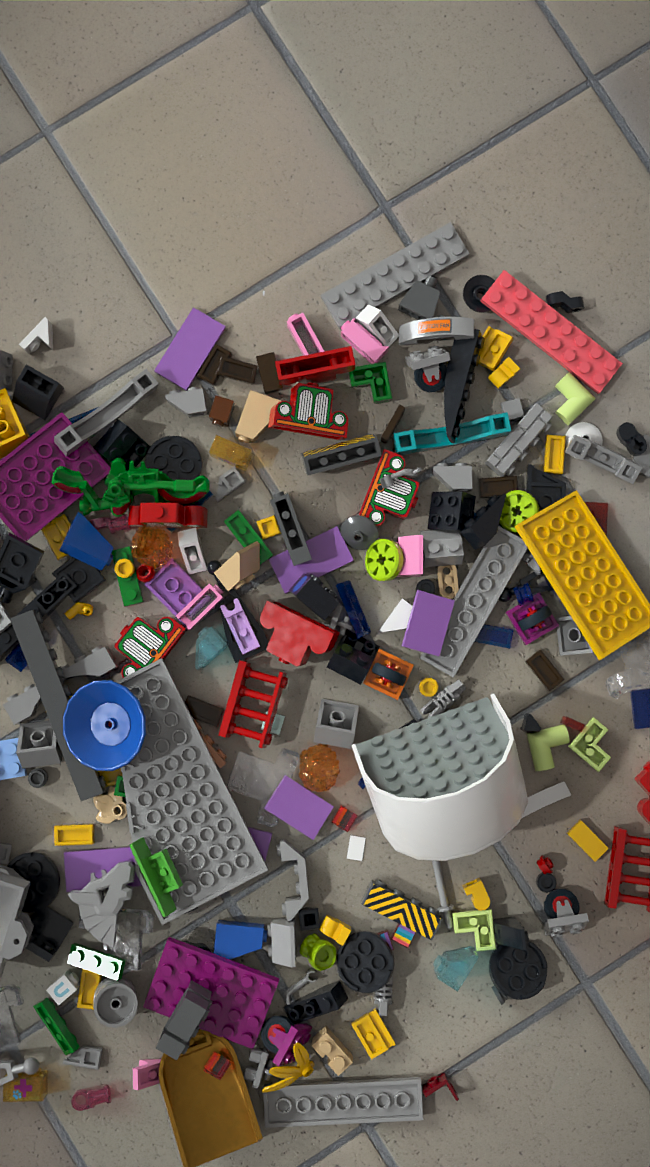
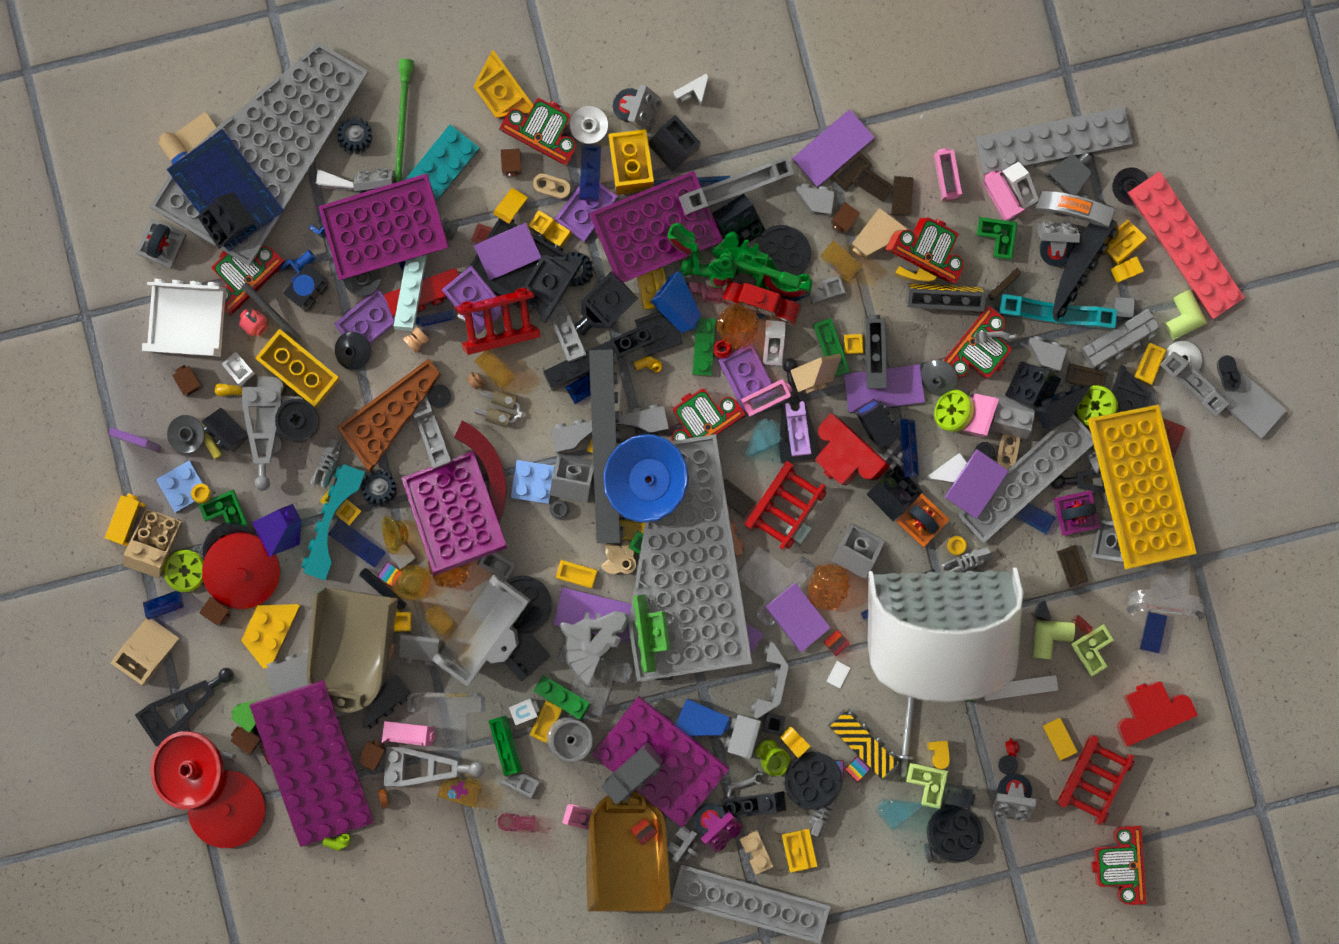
camera: 15 degrees right, 0 degrees up
(124, 568) = (705, 338): yellow tile -> none
(292, 1073) = (716, 859): yellow plant -> none
(312, 442) = (920, 277): none -> yellow slope
(315, 367) = (949, 207): red brick -> none
(436, 1083) = (841, 914): dark red bracket -> none
(523, 594) = (1075, 486): clear blue wheel -> none
(562, 300) = (1206, 217): black piece -> none

